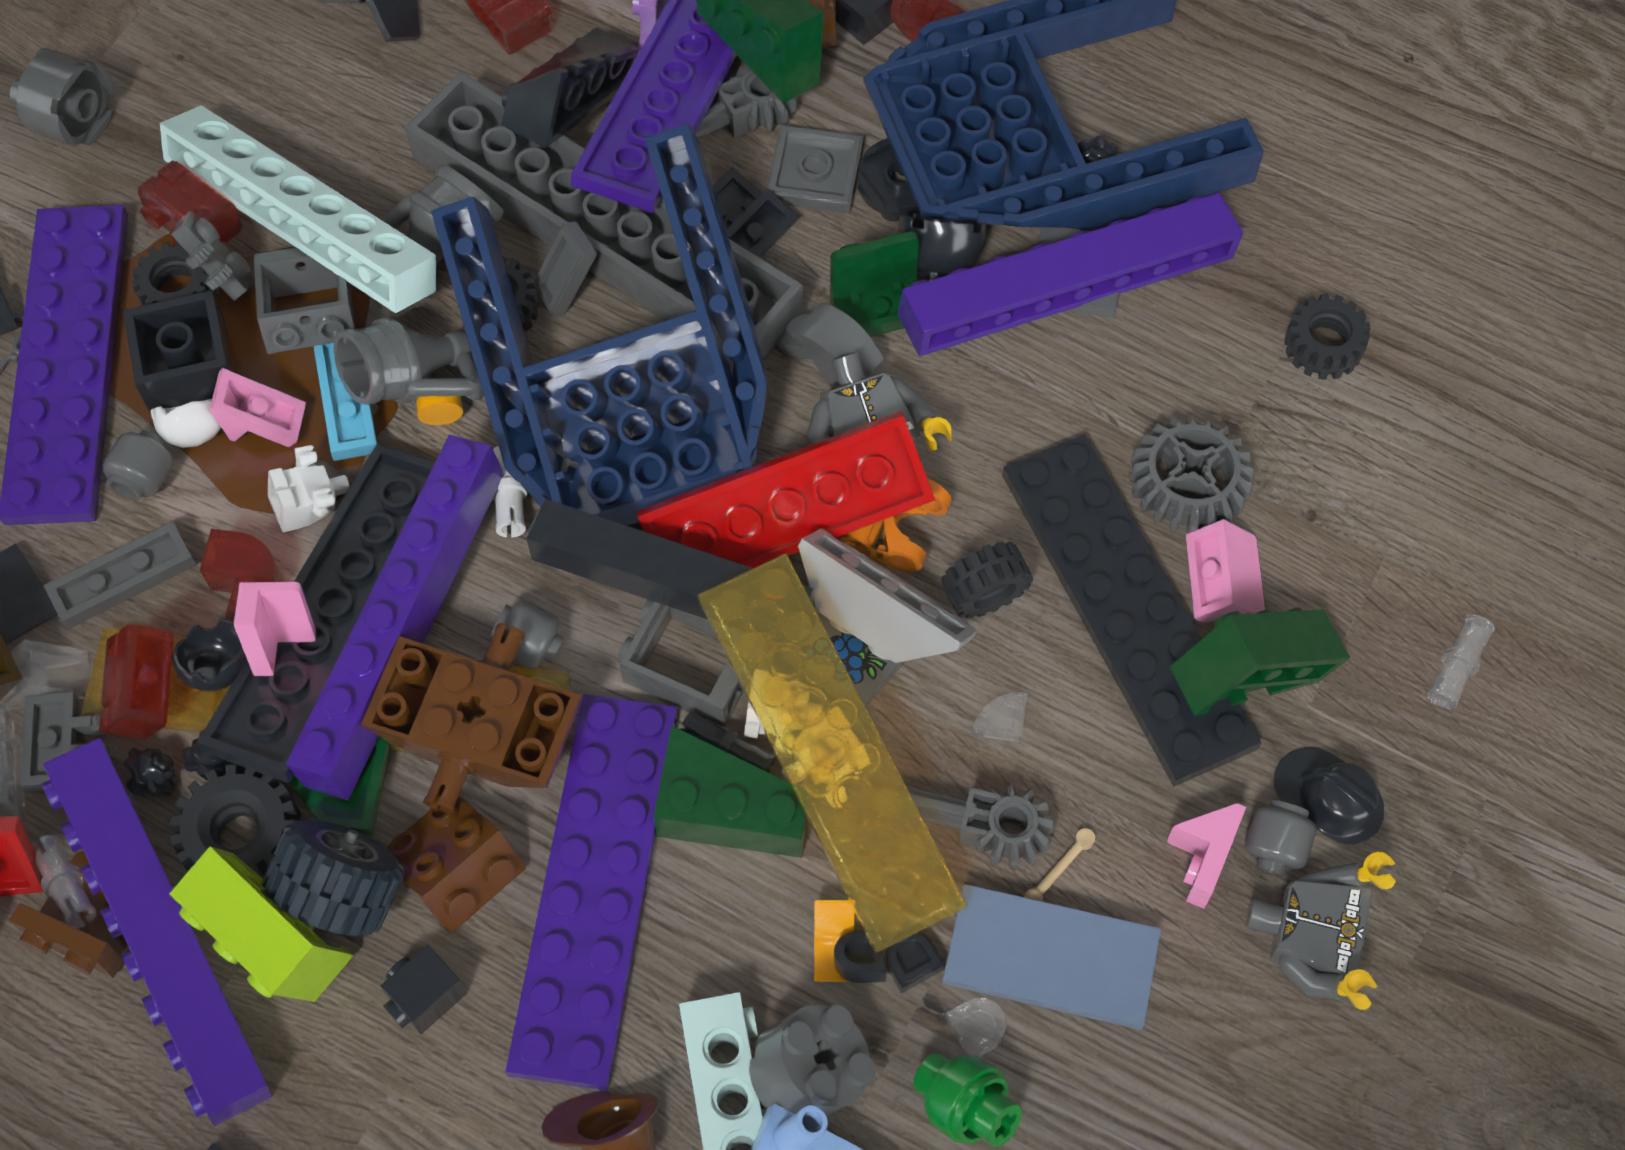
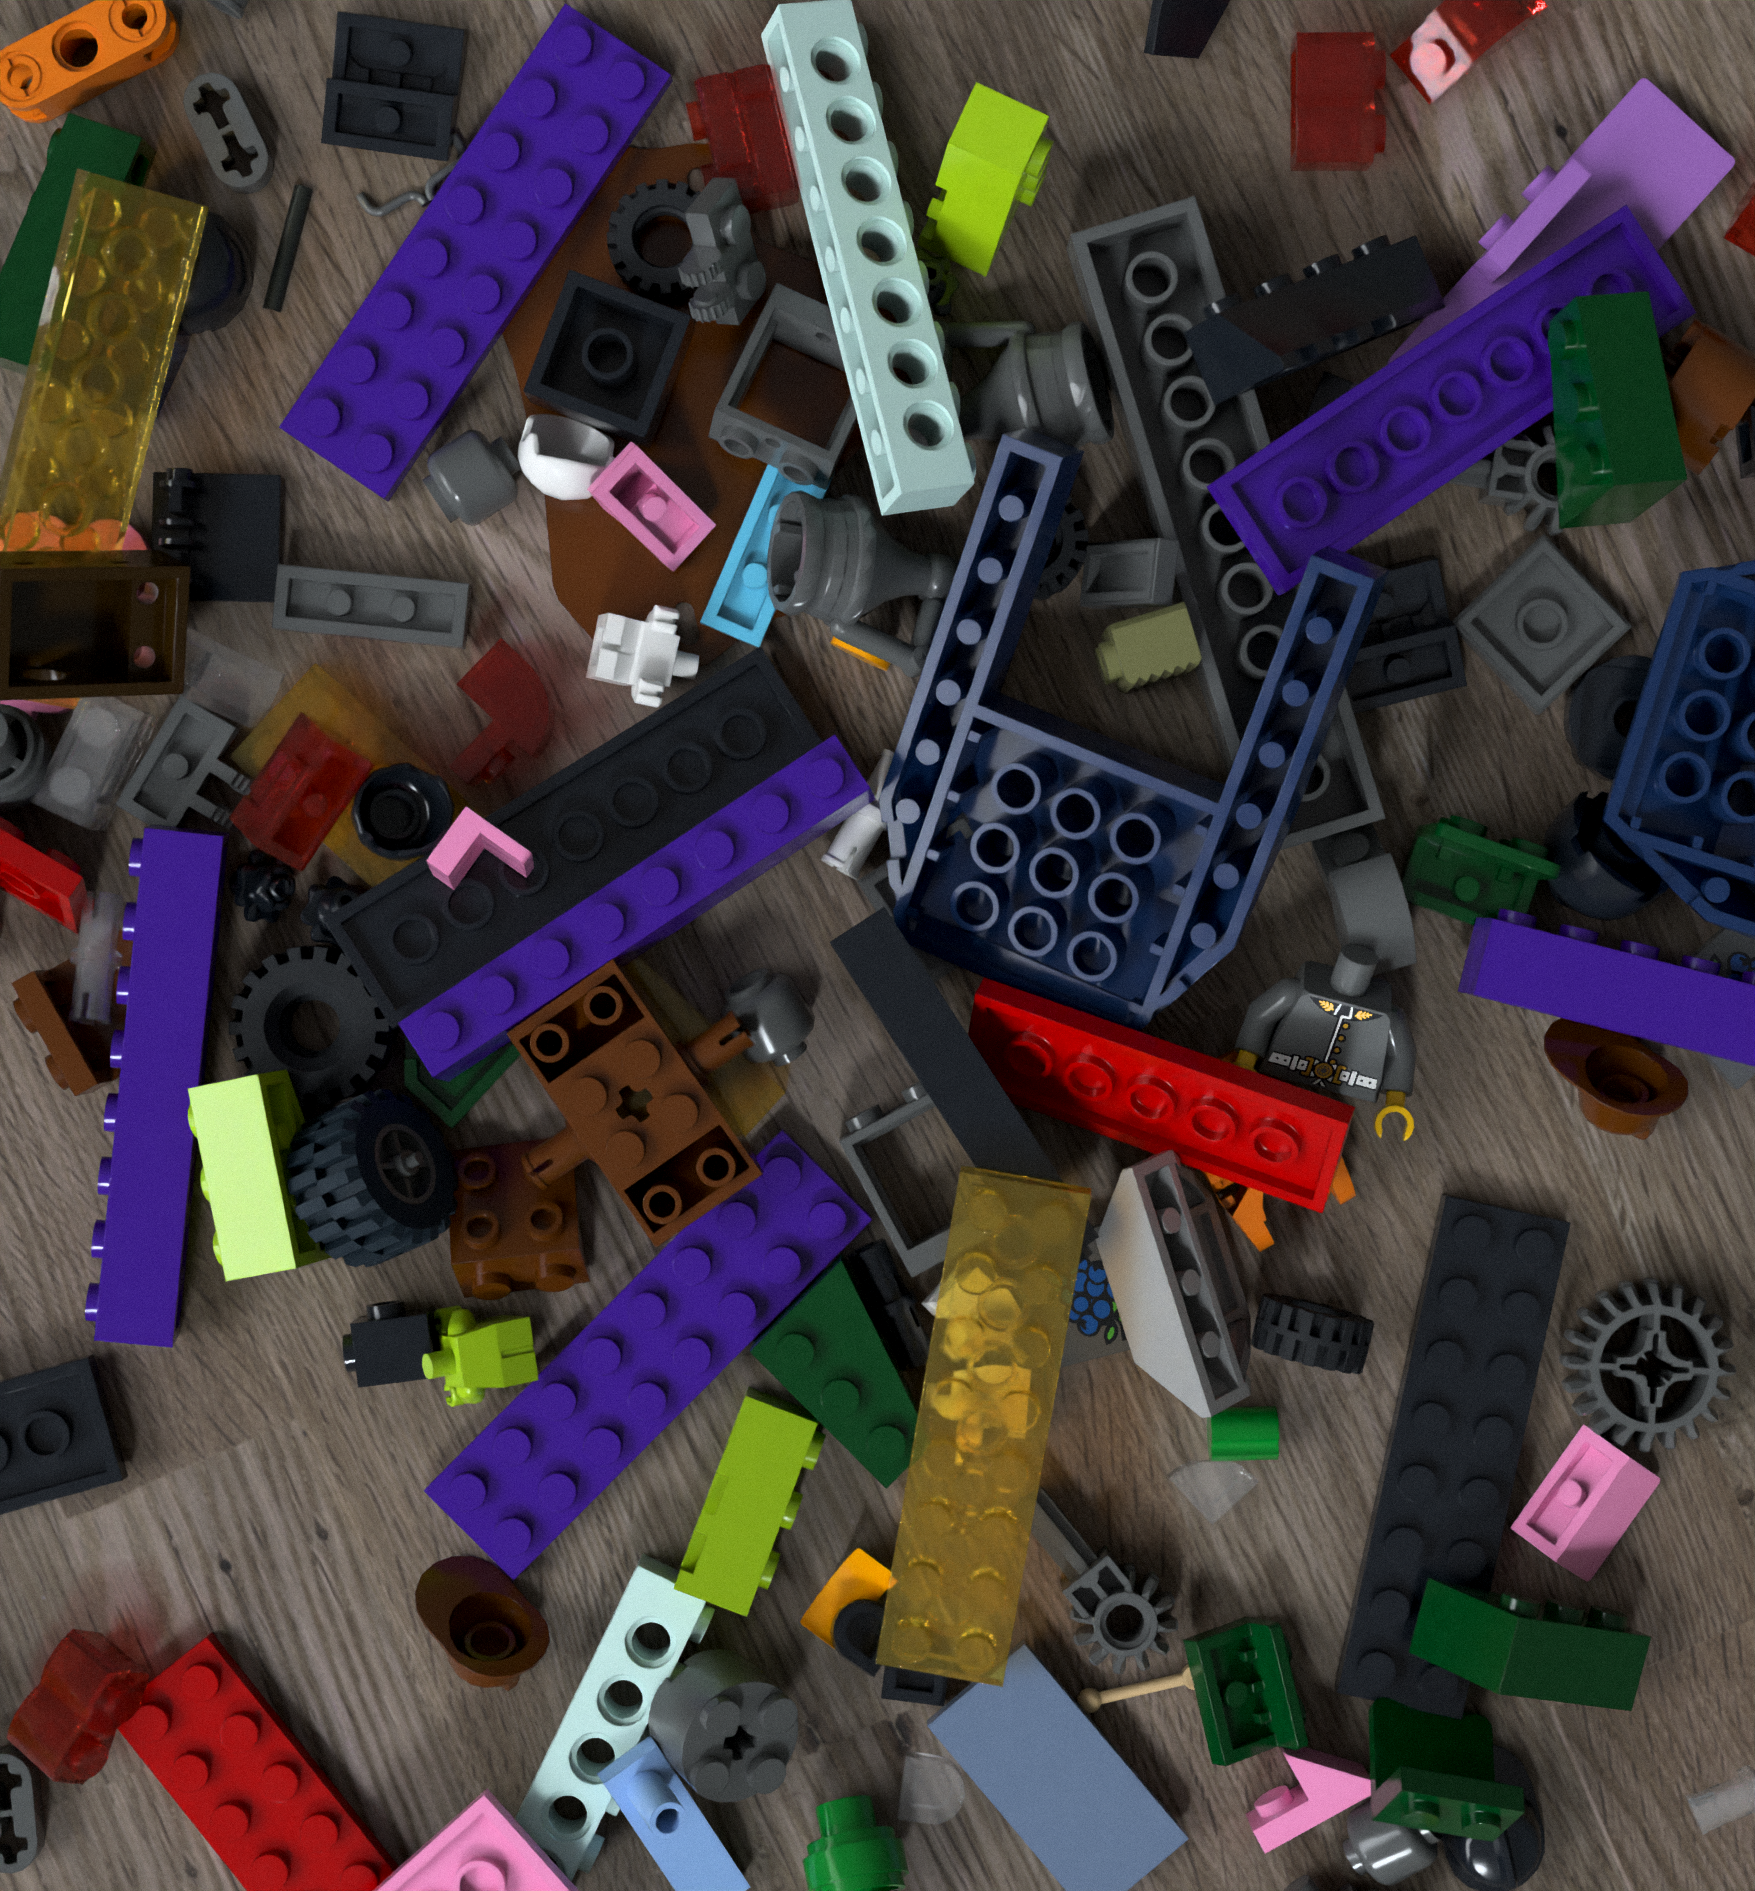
camera: 35 degrees right, 25 degrees up
(337, 124) = (986, 172): none -> lime wedge
(484, 951) = (480, 1354): none -> lime piece
(604, 295) = (1148, 649): none -> olive brick
(724, 917) = (749, 1502): none -> lime wedge
(995, 672) = (1244, 1434): none -> green piece
(1046, 348) = (1617, 1077): none -> reddish brown piece
(1121, 814) = (1246, 1690): none -> dark green bracket
(1277, 769) = (1437, 1773): none -> dark green bracket

